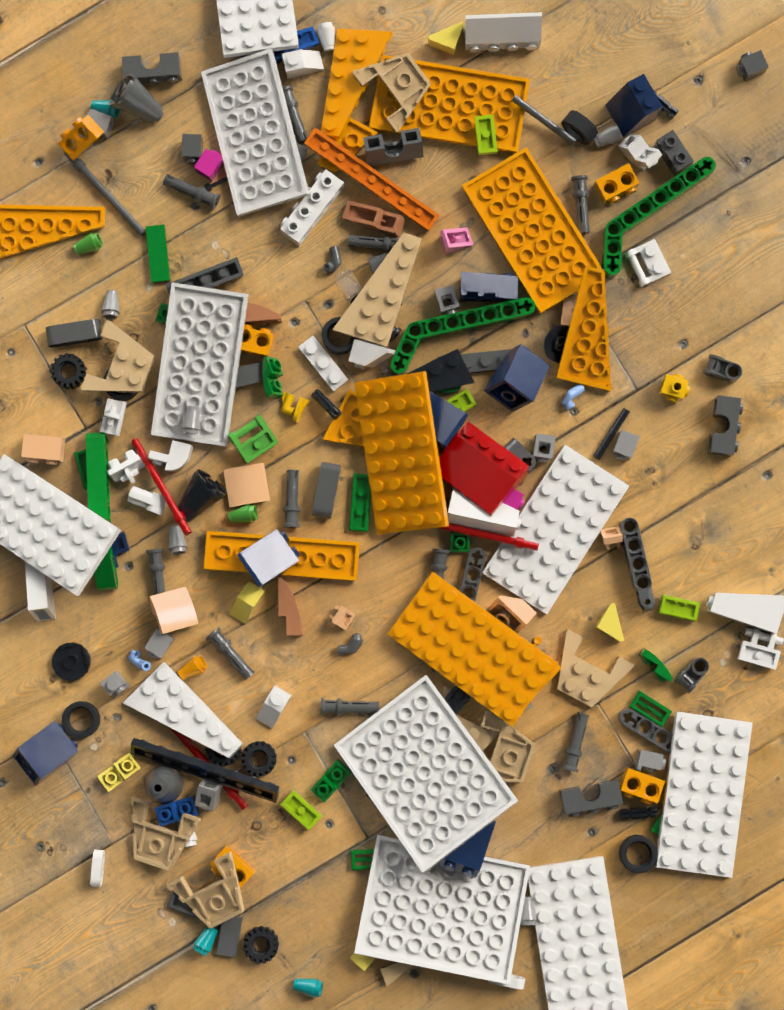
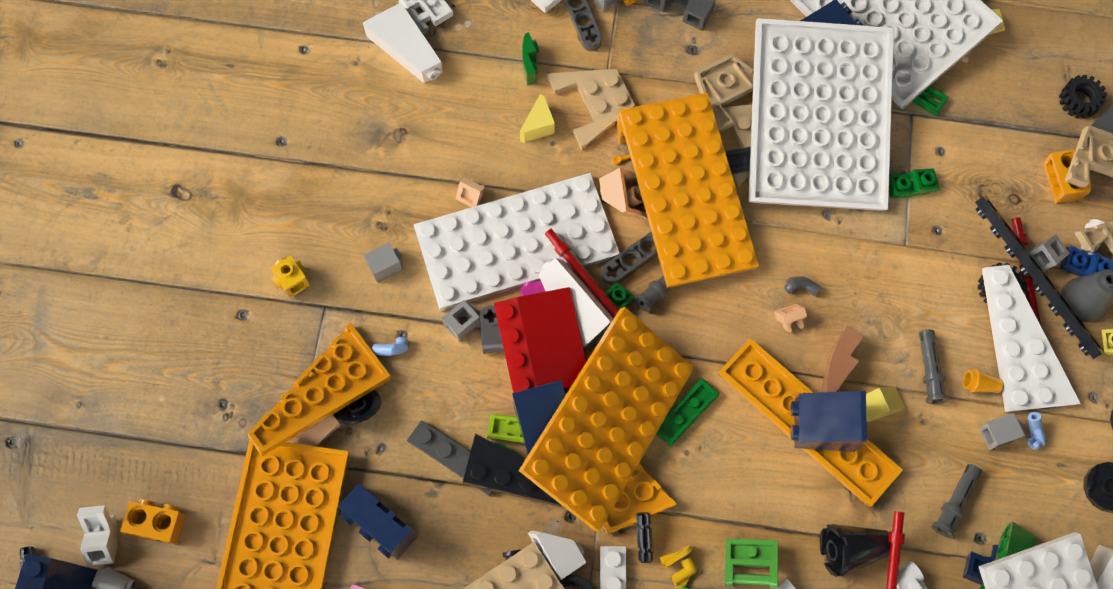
camera: 145 degrees left, 15 degrees down
(115, 684) = (1078, 426): light grey brick -> none
(173, 610) = (966, 451): light nougat slope -> none
(177, 542) = (913, 520): light grey cone -> none
(245, 514) = (818, 492): bright green cone -> none
(246, 485) = (793, 521): light nougat slope -> none
(247, 758) = (963, 260): black tyre -> none
(273, 706) = (920, 286): white slope -> none
(291, 509) = (762, 459): dark grey pin -> none
(301, 810) = (961, 178): lime plate -> none
(309, 987) = (1060, 34): teal cone -> none
(326, 490) = (712, 449): dark grey beam -> none
(339, 707) = (856, 238): dark grey pin -> none
(447, 293) = (420, 548): light grey brick -> none
(462, 325) = (438, 505): green beam -> none
(517, 378) = (428, 402): dark blue slope -> none
(573, 752) = (663, 46): dark grey pin -> none
(581, 195) = (194, 541): dark grey pin -> none
(612, 432) = (385, 285): black bar -> none
(636, 700) = (570, 47): green tile -> none
(645, 593) = (485, 122): dark grey piece -> none
(653, 207) = (141, 467): green beam -> none
(653, 261) = (193, 416): white plate -> none
(673, 153) = (65, 502): dark grey brick -> none
(679, 608) = (465, 90): lime plate -> none
(691, 674) = (503, 29): dark grey piece -> none
(721, 369) = (230, 261): dark grey piece -> none
(729, 410) = (289, 193): dark grey arch -> none

